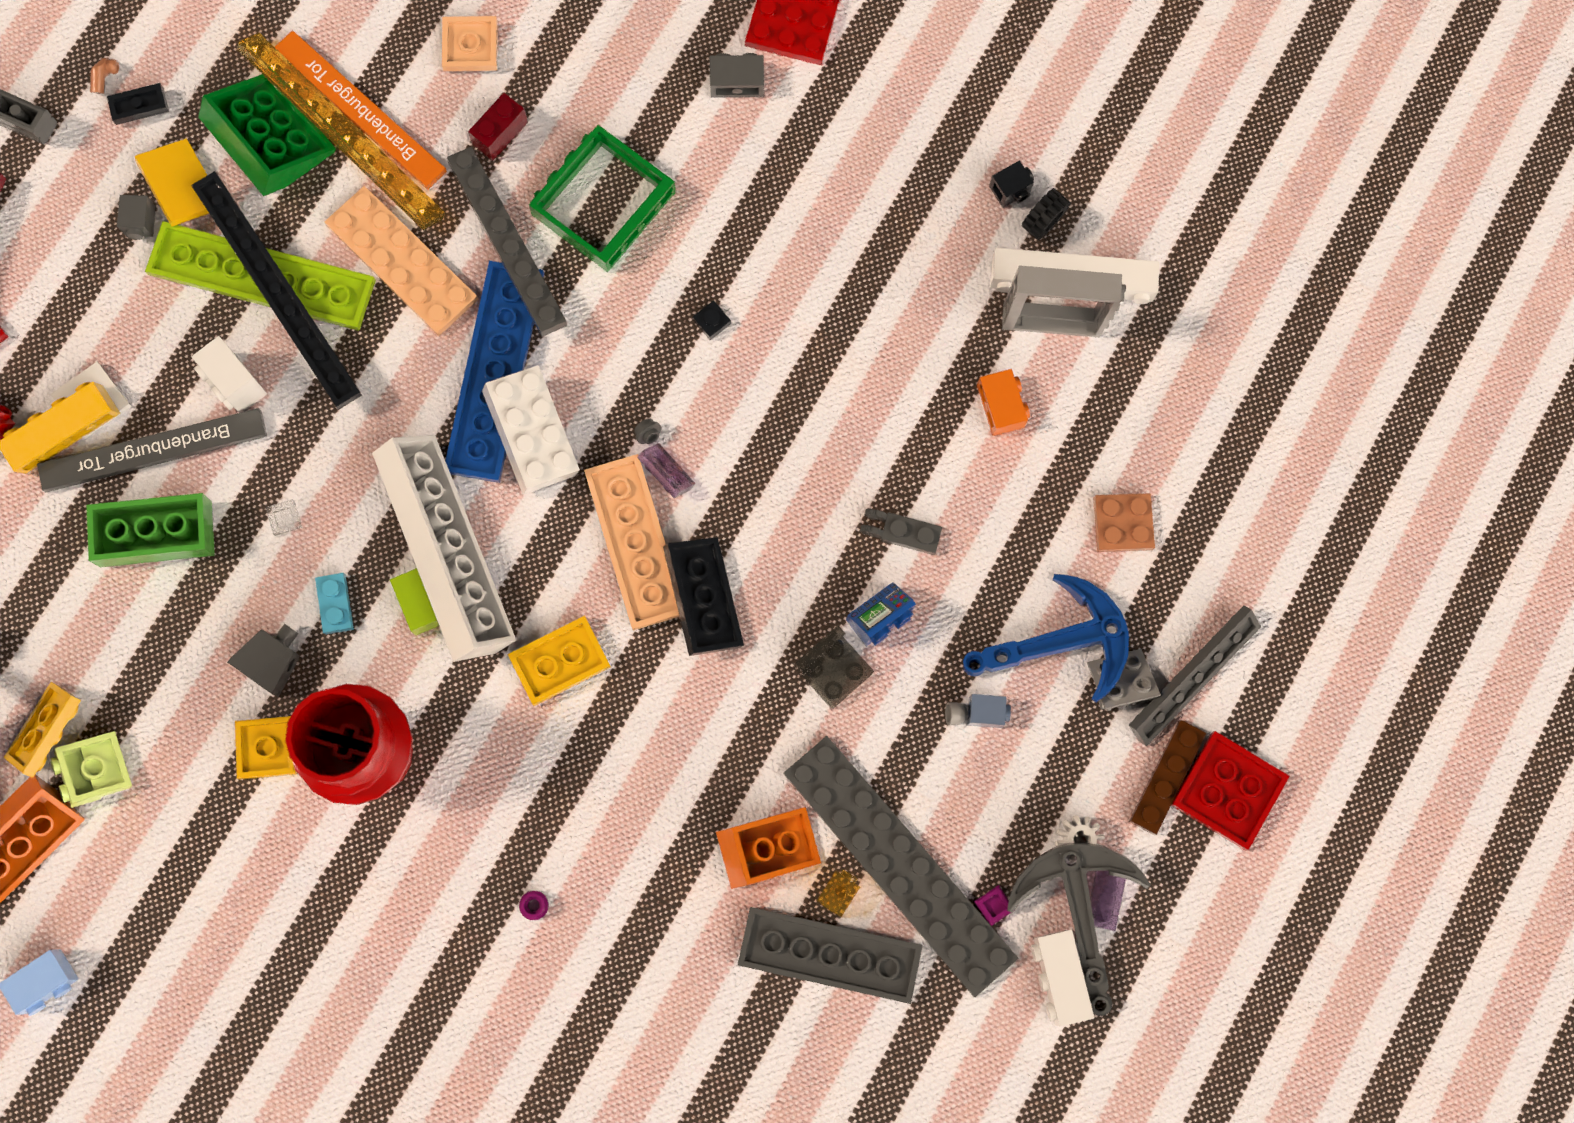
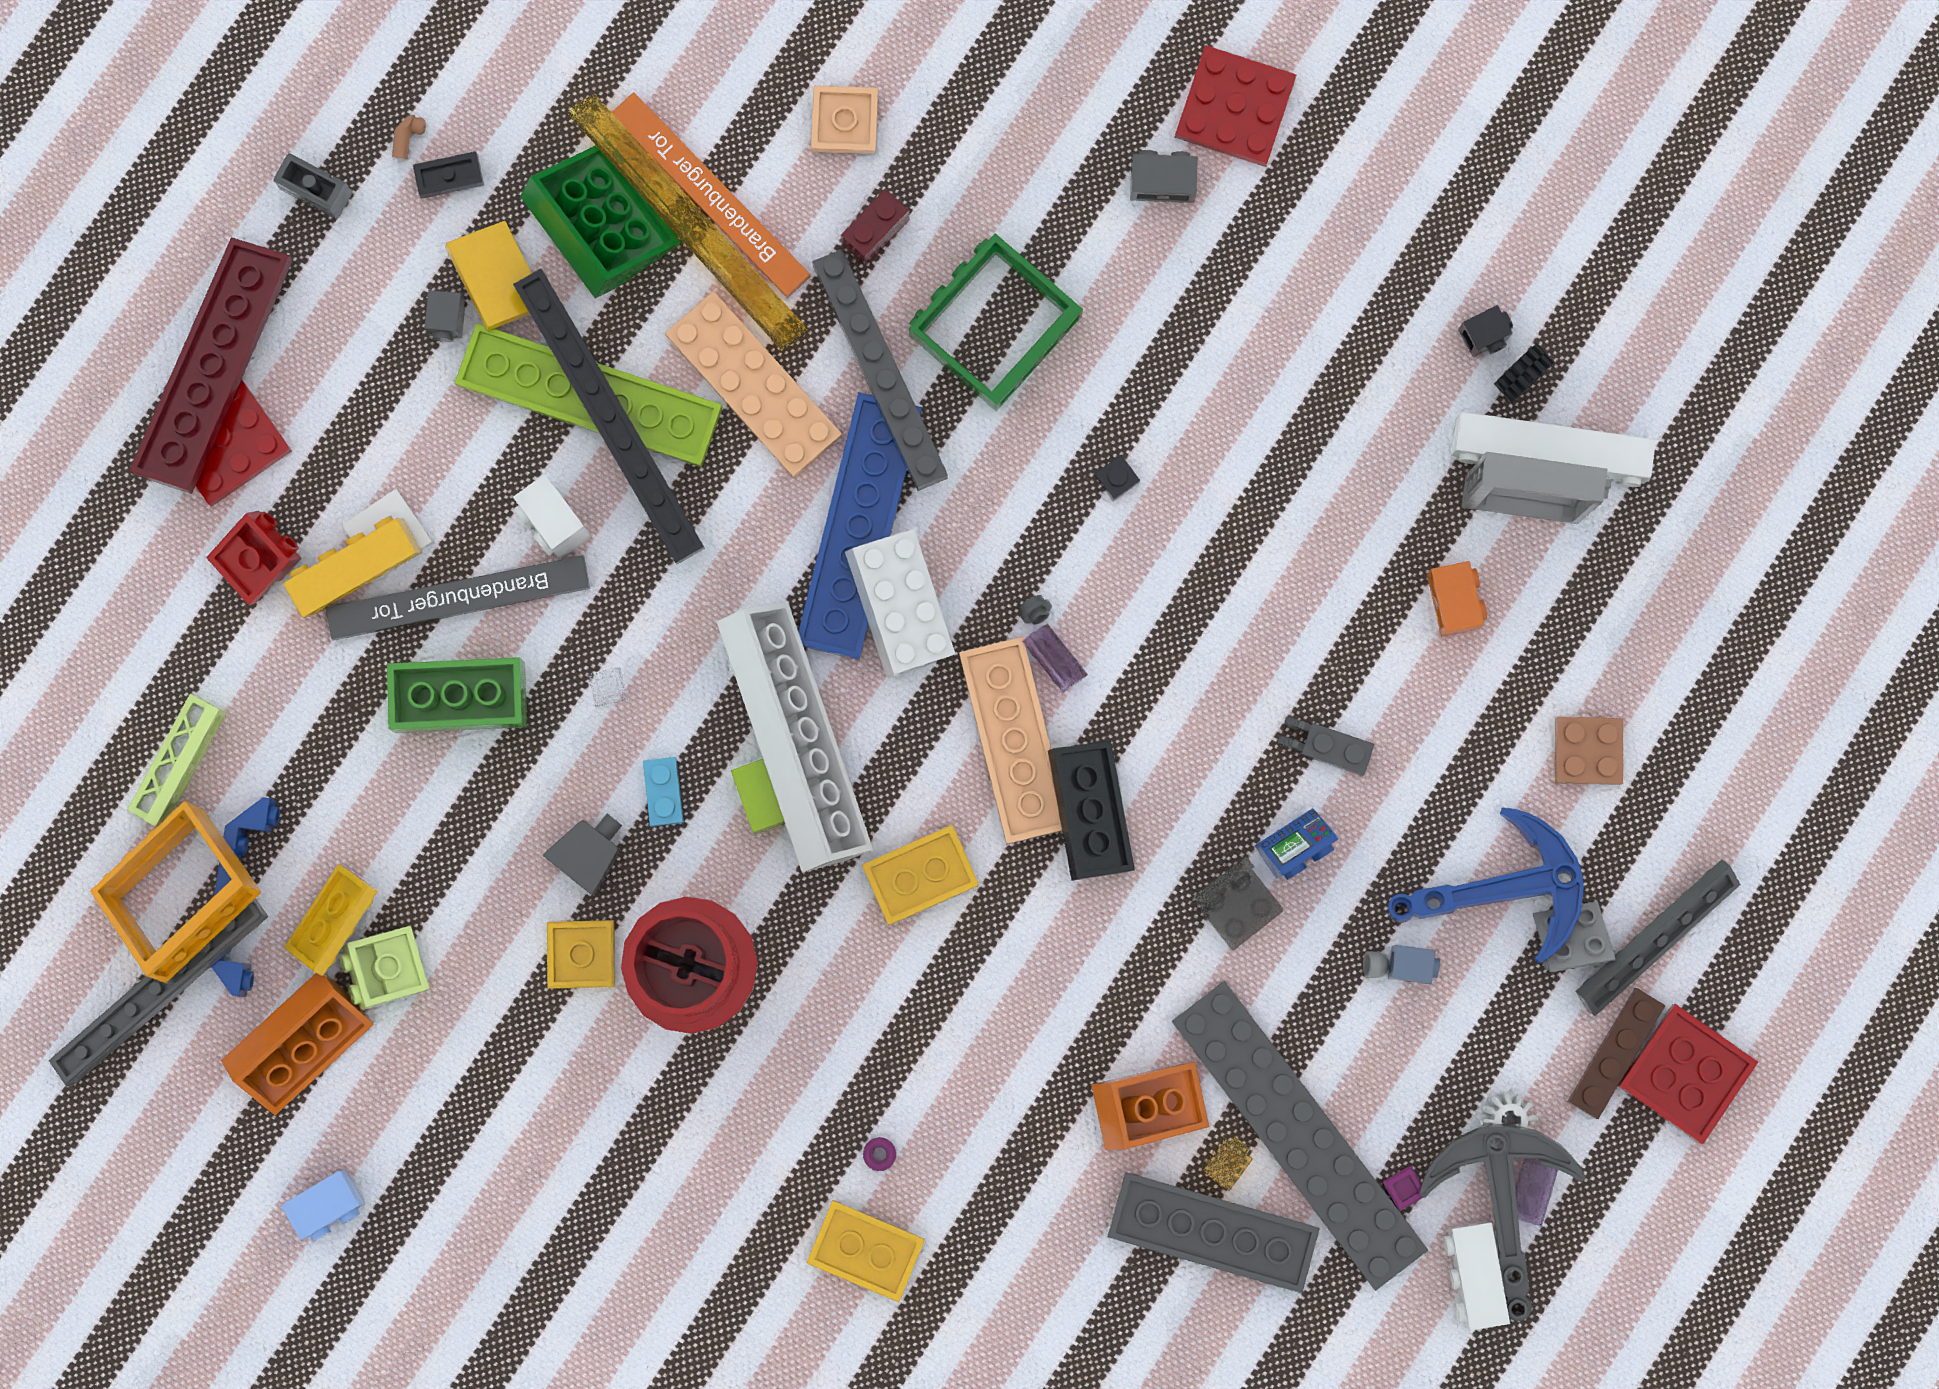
camera: 10 degrees right, 5 degrees up
(524, 992) = (865, 1251): none -> yellow plate

